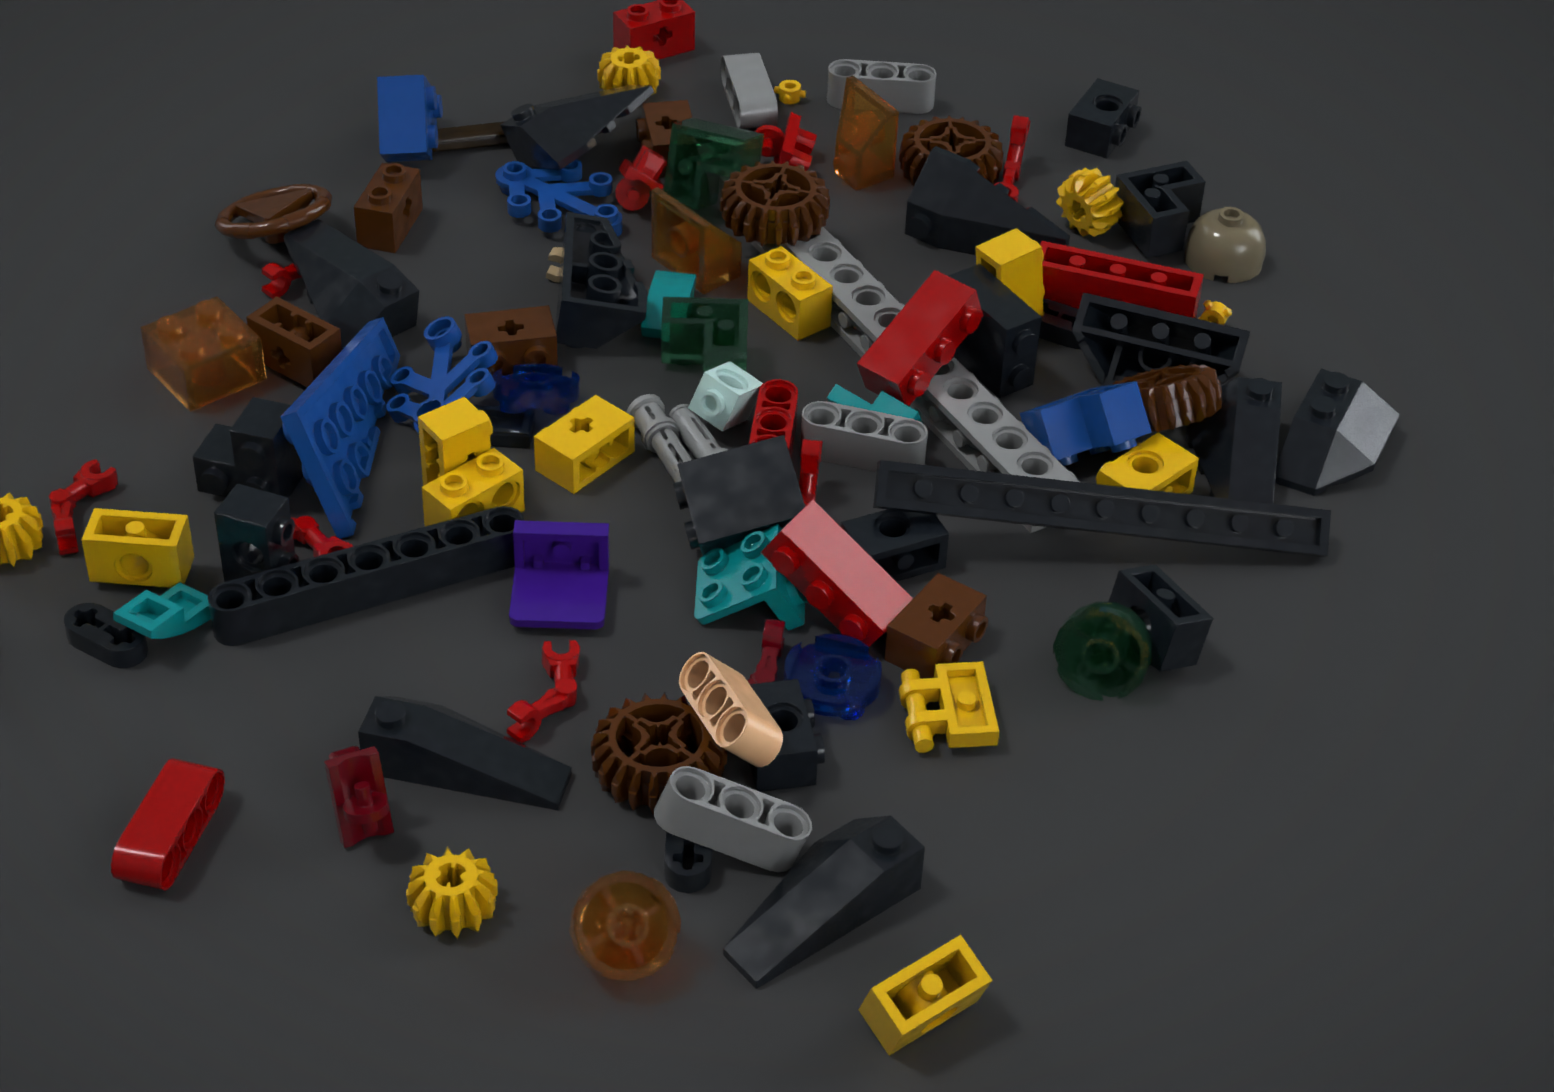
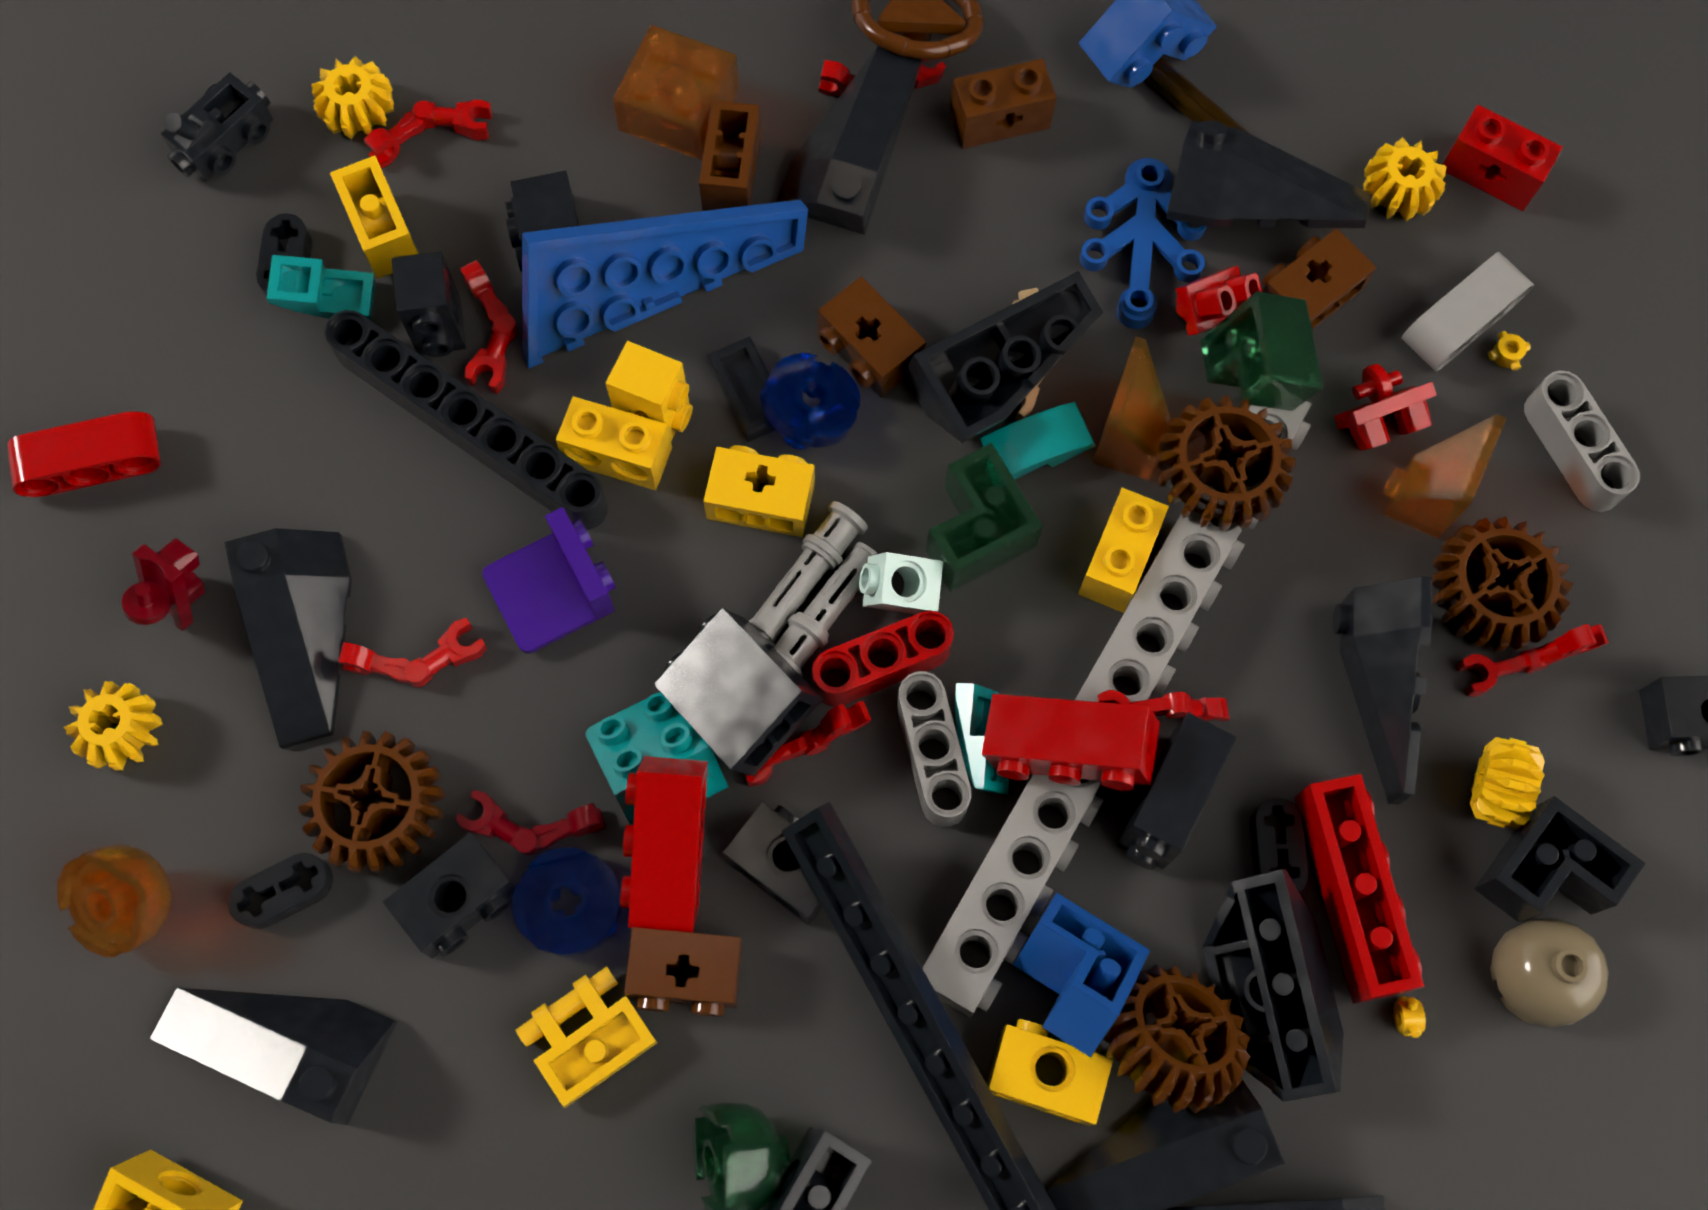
camera: 60 degrees right, 30 degrees up
(444, 339) = (706, 338): blue plant -> none
(730, 709) = (411, 847): light nougat beam -> none
(732, 819) = (288, 947): light grey beam -> none
(1017, 264) = (1259, 777): yellow brick -> none

